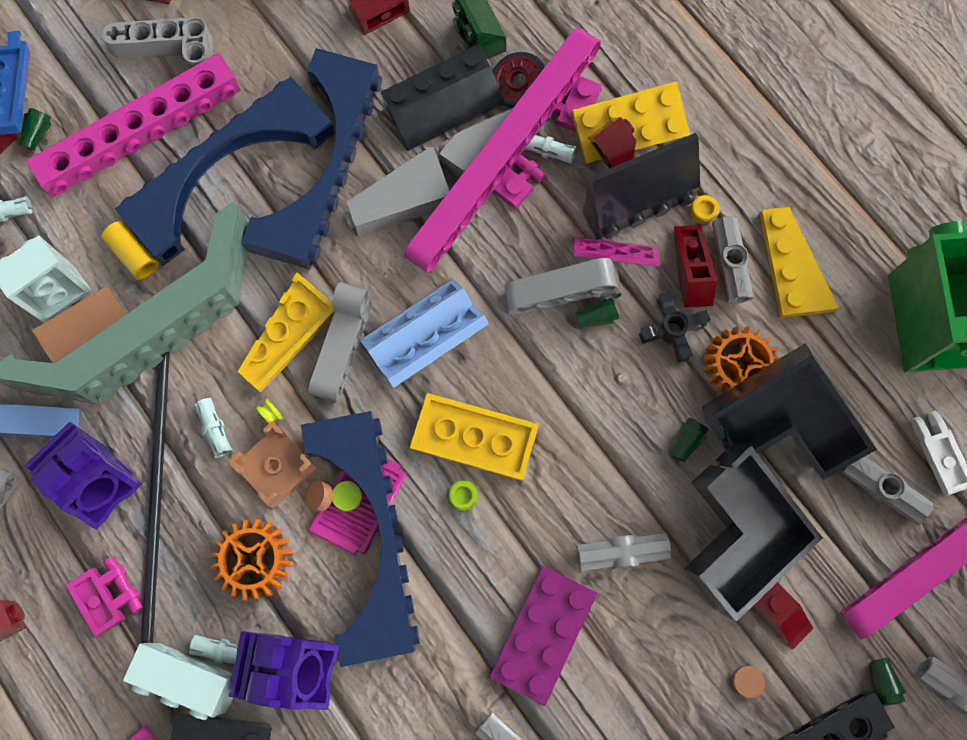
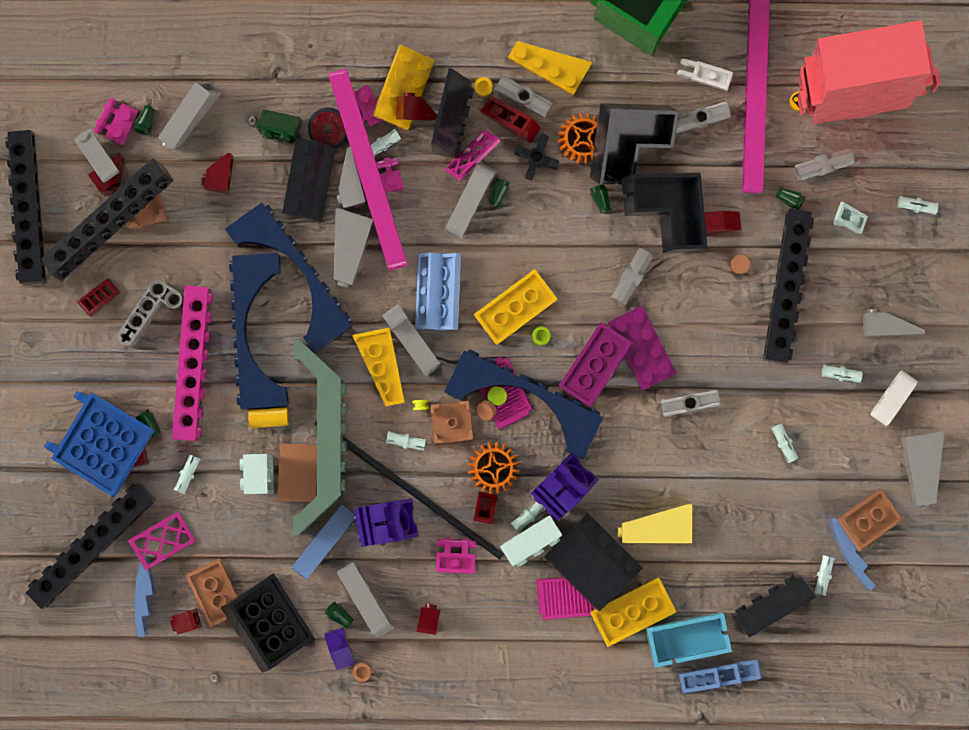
camera: 55 degrees left, 10 degrees up
(189, 588) = (485, 508): none -> dark red slope
(476, 590) = (595, 364): none -> magenta plate

